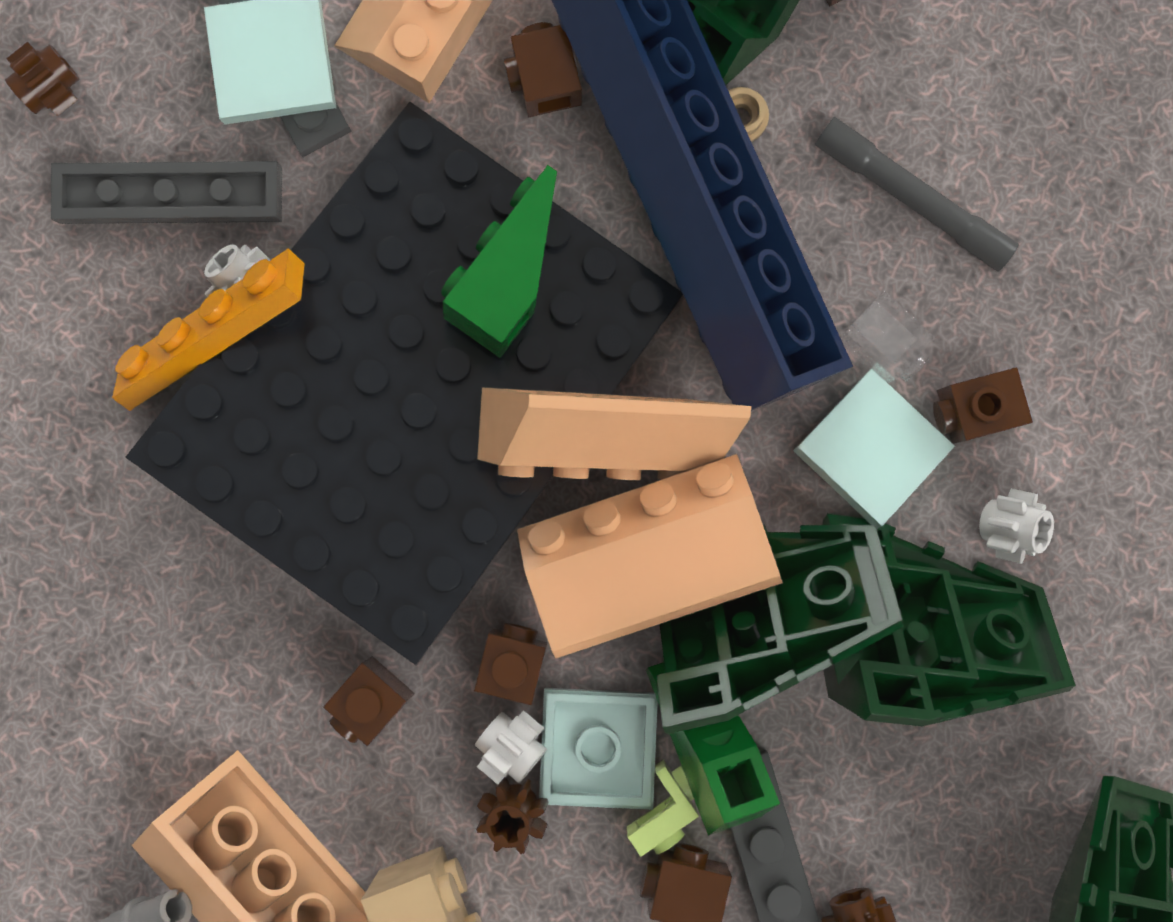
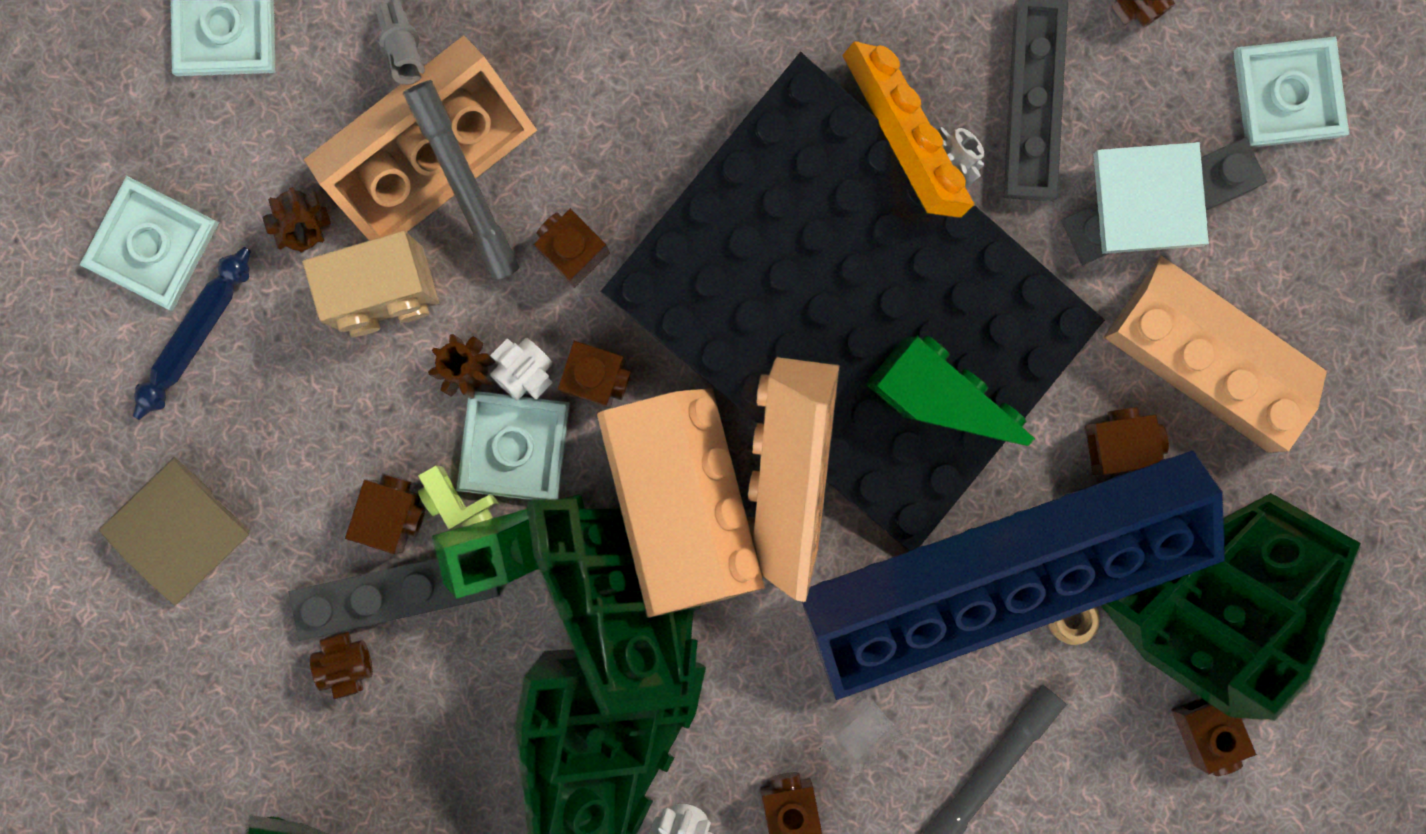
camera: 90 degrees right, 0 degrees up
(239, 870) = (437, 128): none -> dark grey piece
(874, 448) = (761, 714): light aqua tile -> none

